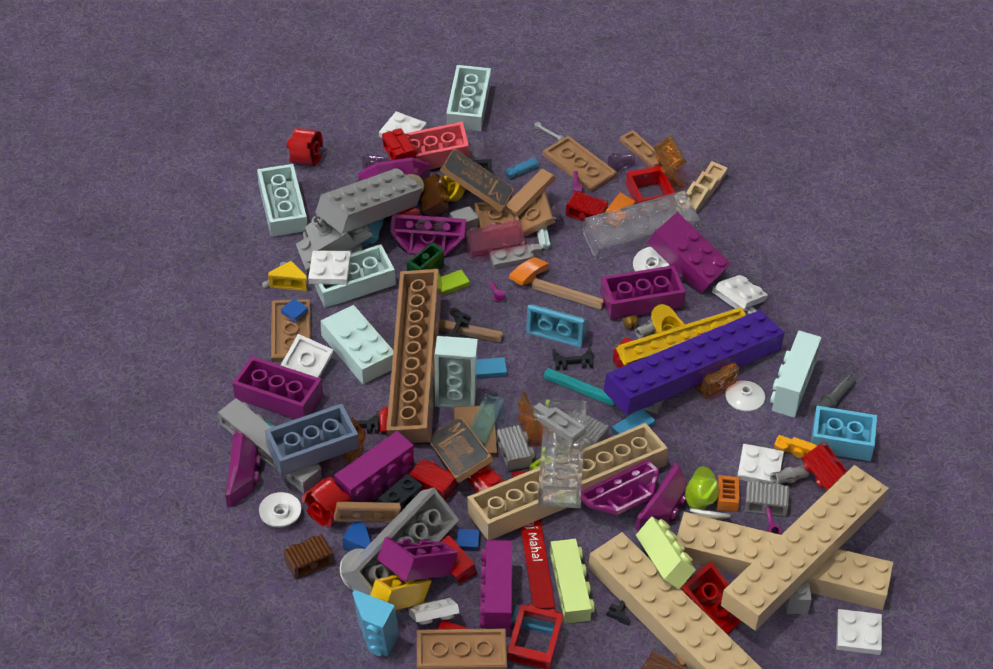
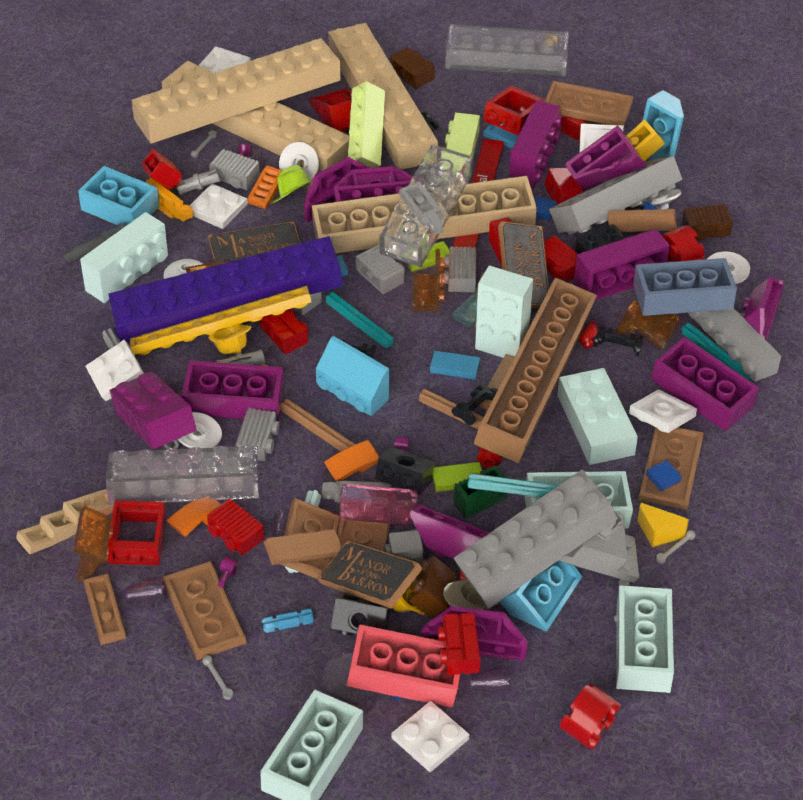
camera: 160 degrees left, 0 degrees up
(329, 267) = (617, 489): white plate -> none
(397, 251) = (509, 485): none -> teal axle
(496, 273) = (404, 470): none -> black brick
(605, 265) = (258, 431): none -> light grey brick
(703, 434) = (252, 241): none -> flat silver tile

